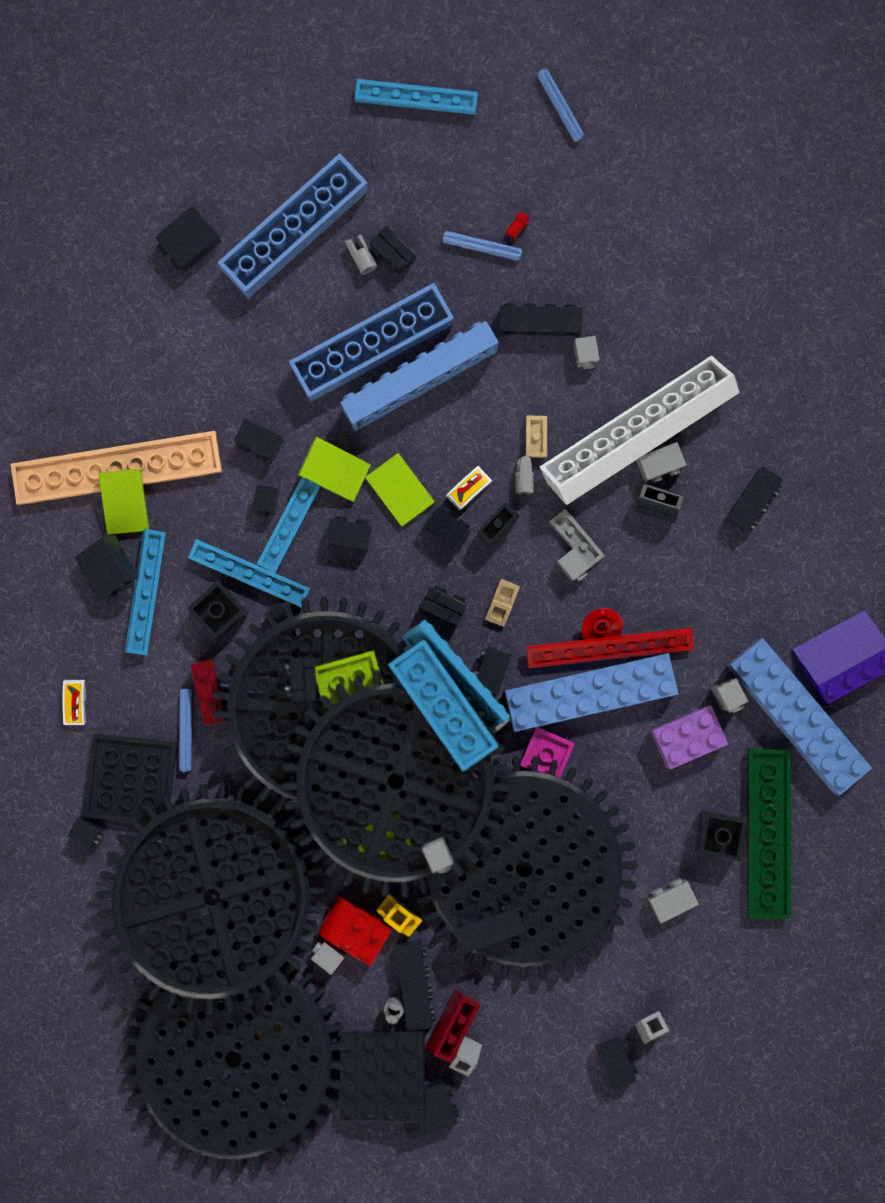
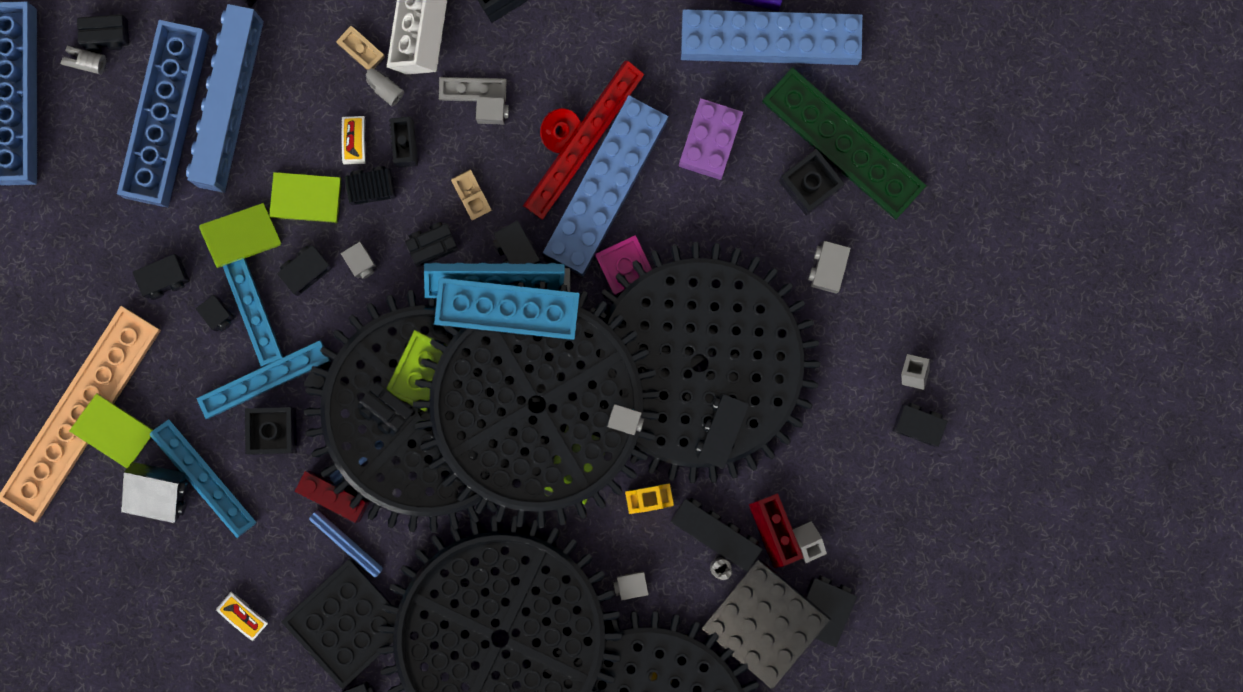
camera: 45 degrees left, 0 degrees up
(354, 929) = (629, 544): red brick -> none
(388, 566) = (359, 261): none -> light grey brick
(729, 695) = (705, 77): light grey brick -> none

